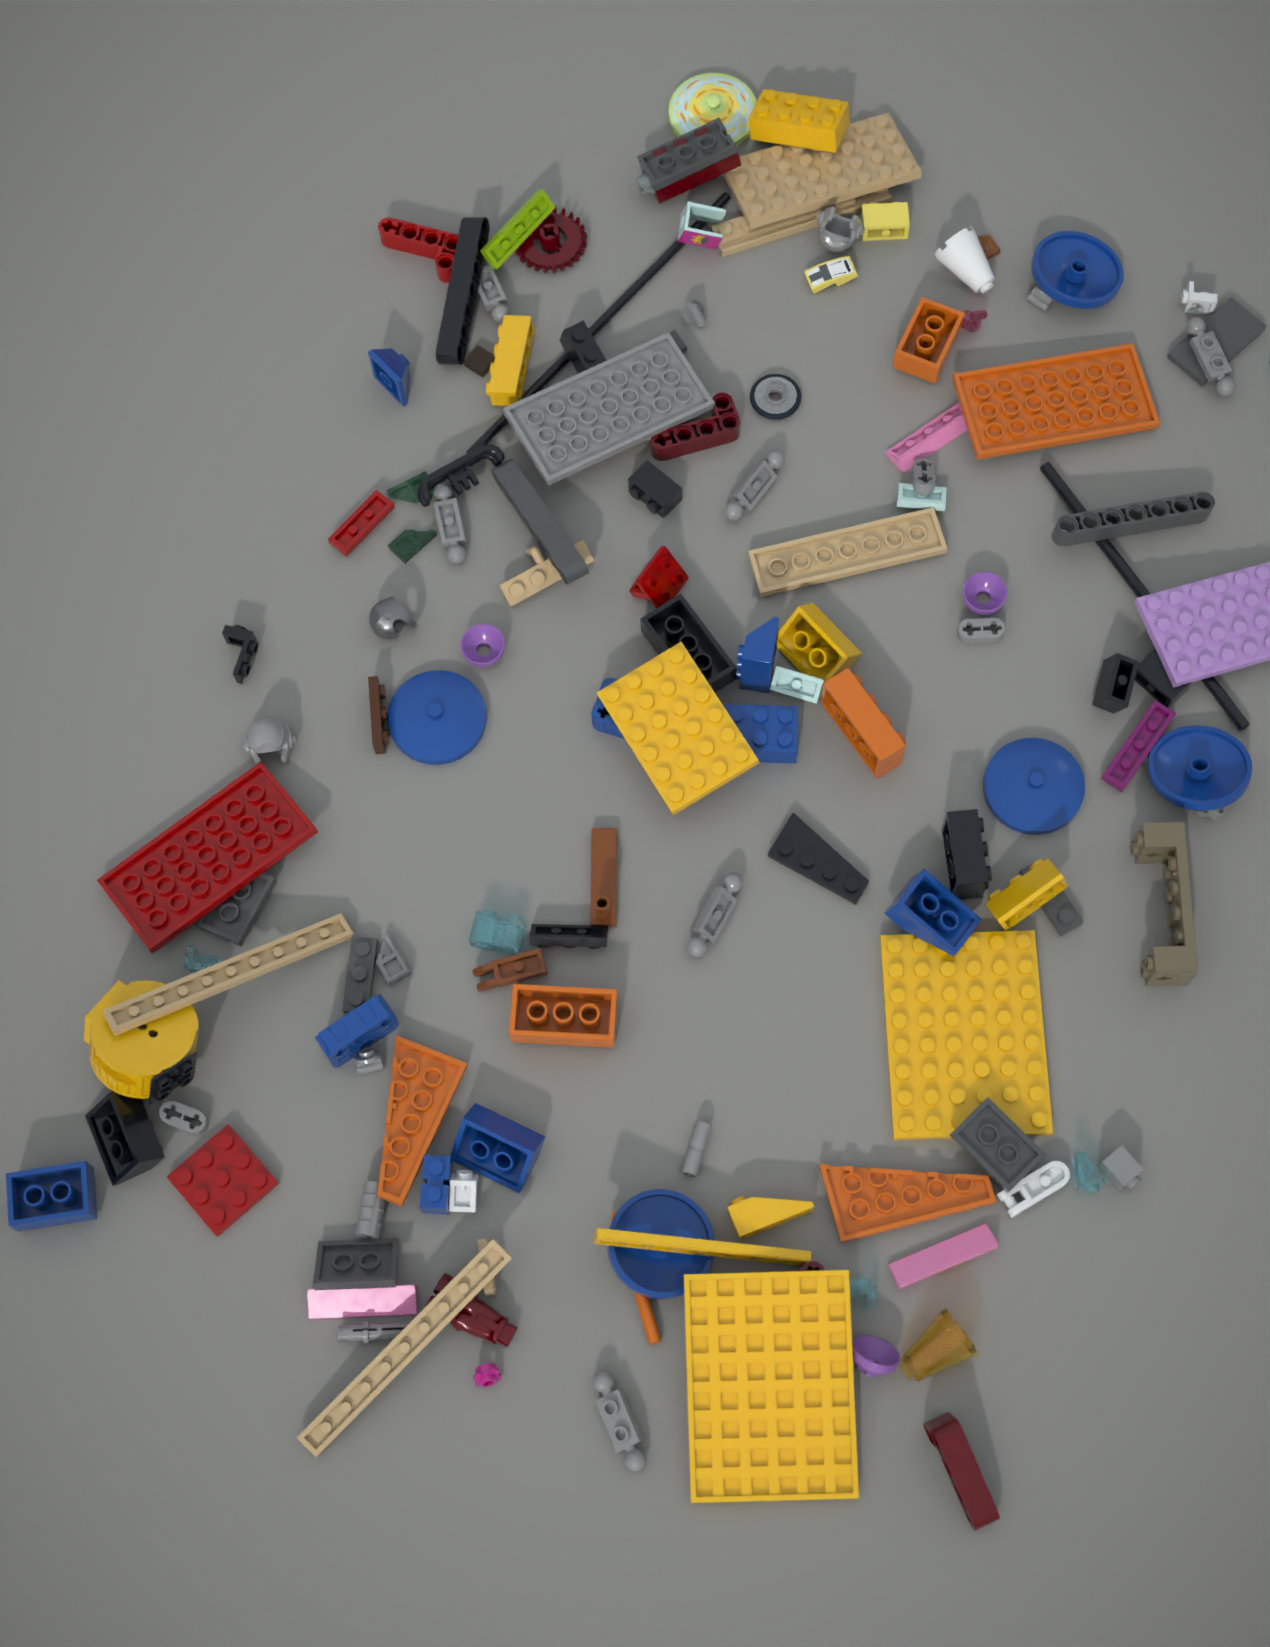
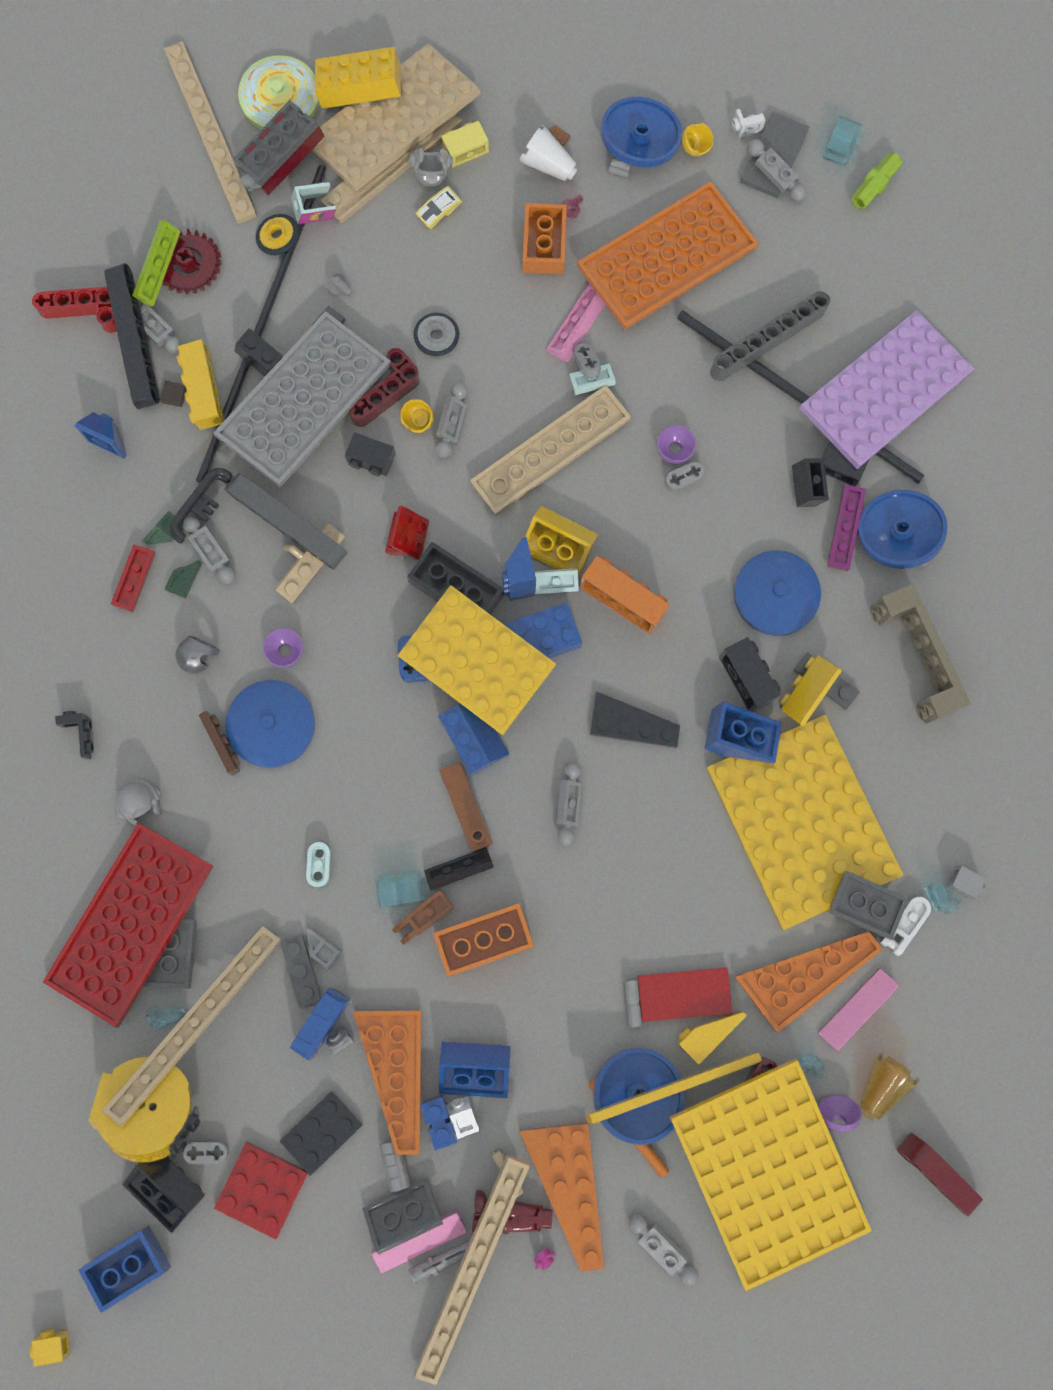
camera: 30 degrees left, 10 degrees up
(309, 1147) = (320, 1133): none -> black plate
(424, 875) = (317, 864): none -> light aqua plate
(549, 1298) = (566, 1171): none -> orange wing
(626, 126) = (210, 132): none -> tan plate
(641, 810) = (473, 739): none -> blue slope
(652, 233) = (284, 242): none -> wheel
(719, 467) = (417, 416): none -> yellow hair
(756, 1162) = (684, 994): none -> red tile
(1135, 297) = (697, 139): none -> yellow hair

